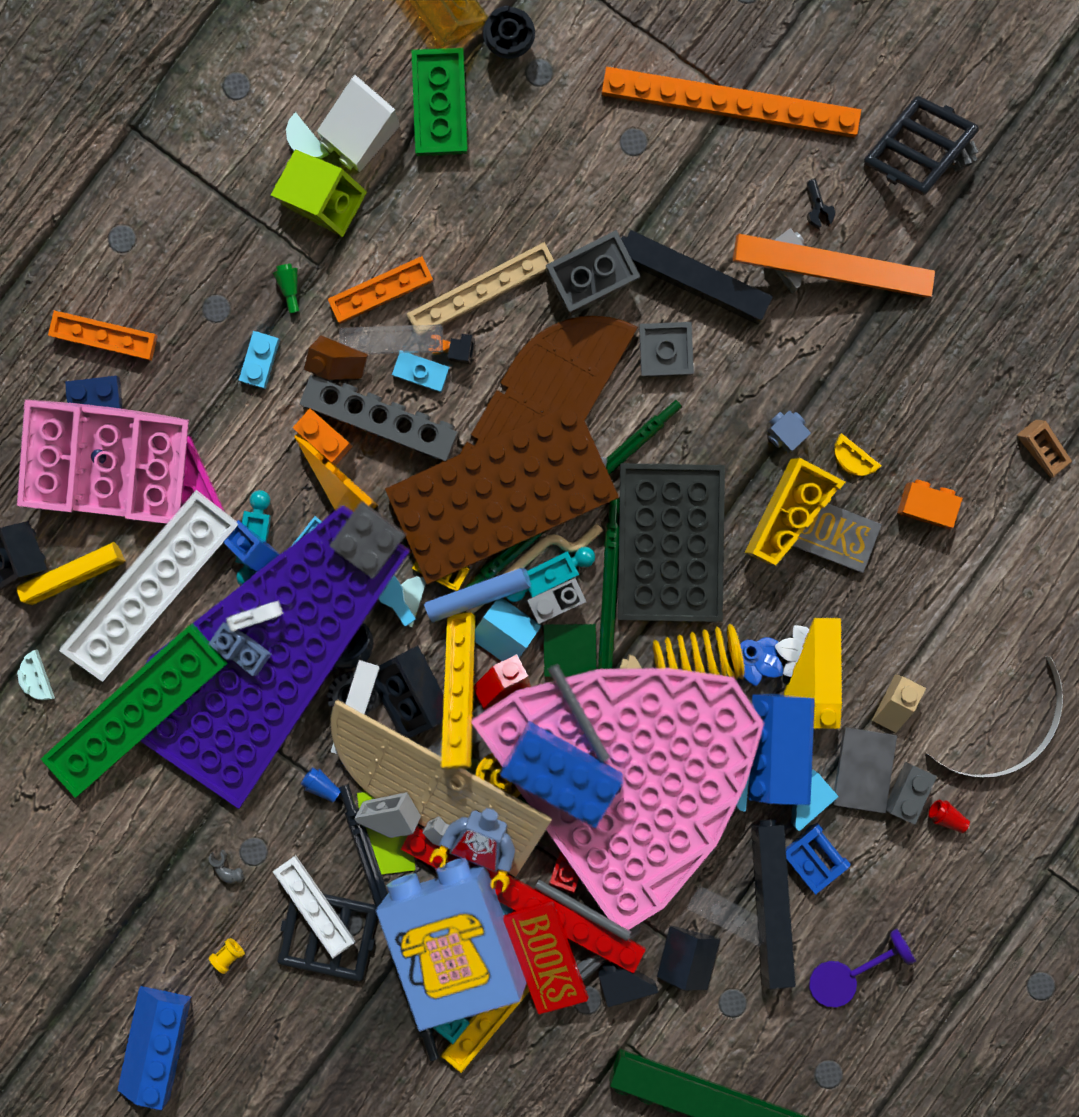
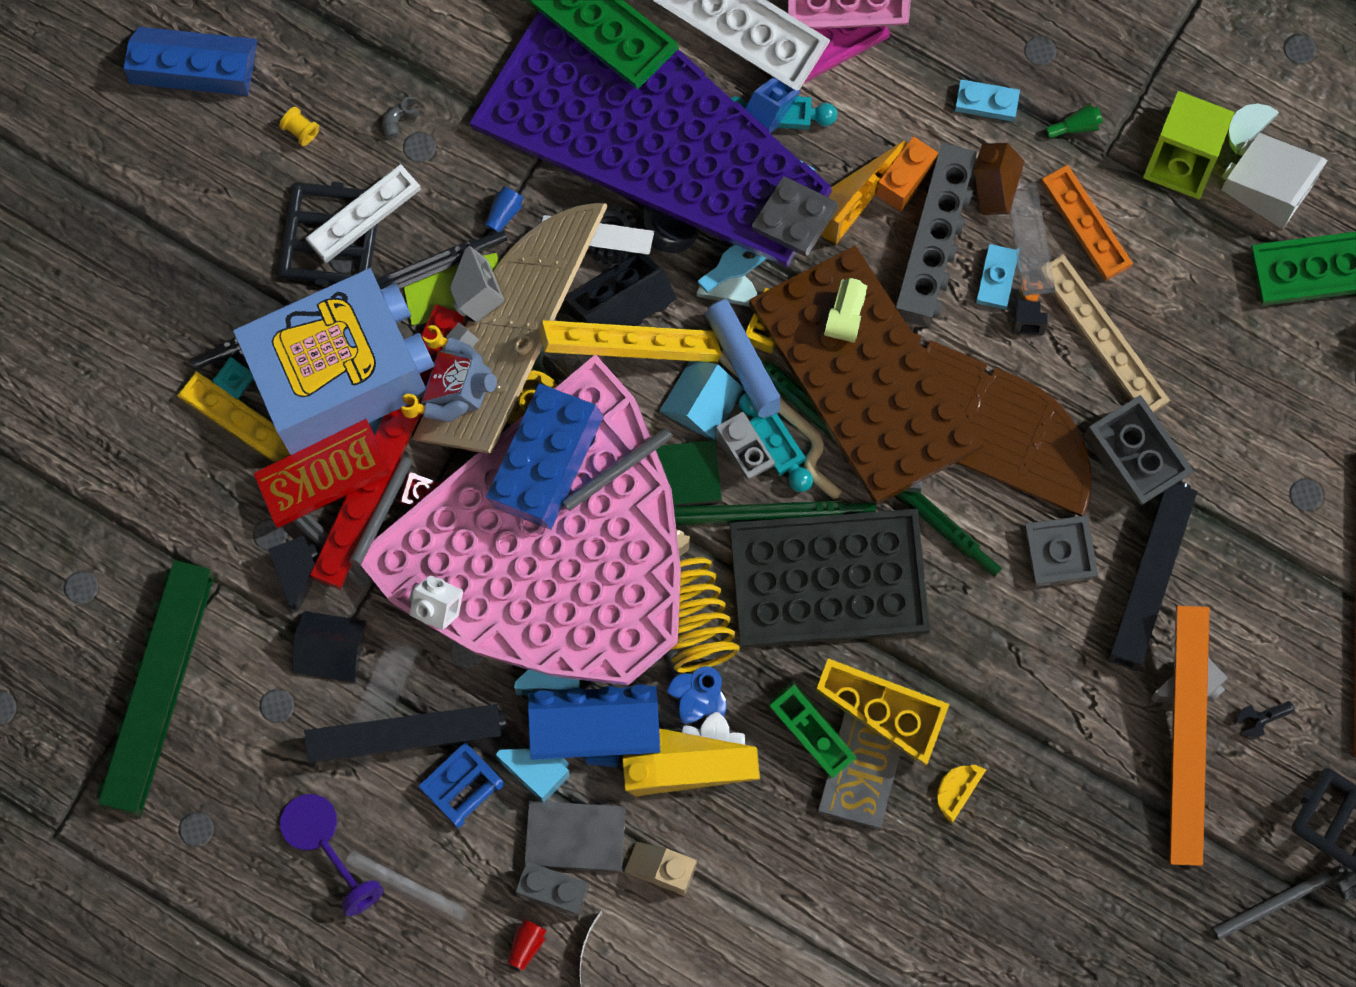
camera: 85 degrees right, 15 degrees down
(240, 648) = (656, 99): sand blue slope -> none
(254, 616) = (694, 108): white piece -> none
(456, 506) = (845, 317): none -> yellowish green piece
(501, 682) = (650, 393): red slope -> none
(676, 875) = (435, 602): none -> white brick
(787, 430) = (981, 702): sand blue brick -> none
(797, 572) = (812, 728): none -> green slope
(896, 909) = (407, 887): none -> clear tile
(929, 504) = (911, 883): orange brick -> none
(969, 220) = (1271, 905): none -> dark grey bar

